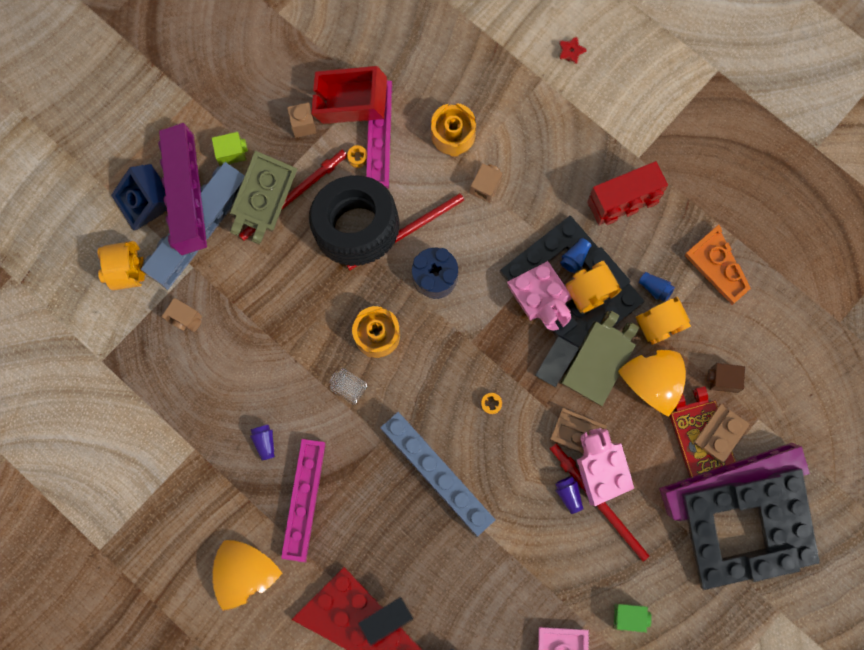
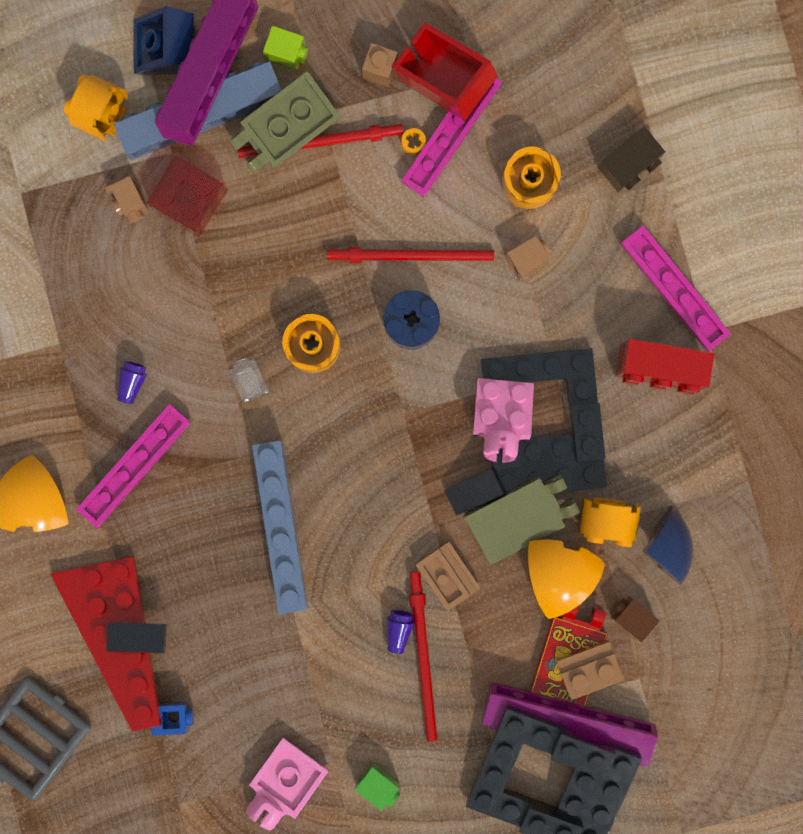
camera: 30 degrees right, 10 degrees up
(223, 287) = (187, 196): none -> clear red brick
(349, 194) = (359, 177): black tyre -> none
(496, 398) = (390, 487): light orange bush -> none
(512, 77) = (632, 159): none -> dark brown brick
(567, 54) = (713, 176): red plate -> none
(575, 256) = (566, 396): blue cone -> none
(592, 287) = (558, 442): light orange brick -> none
(598, 141) = (675, 289): none -> dark pink plate
(603, 467) = (448, 627): bright pink plate -> none
(656, 286) = (629, 480): blue cone -> none
(716, 263) = (708, 500): orange wing -> none
(717, 312) = (672, 546): none -> dark blue brick

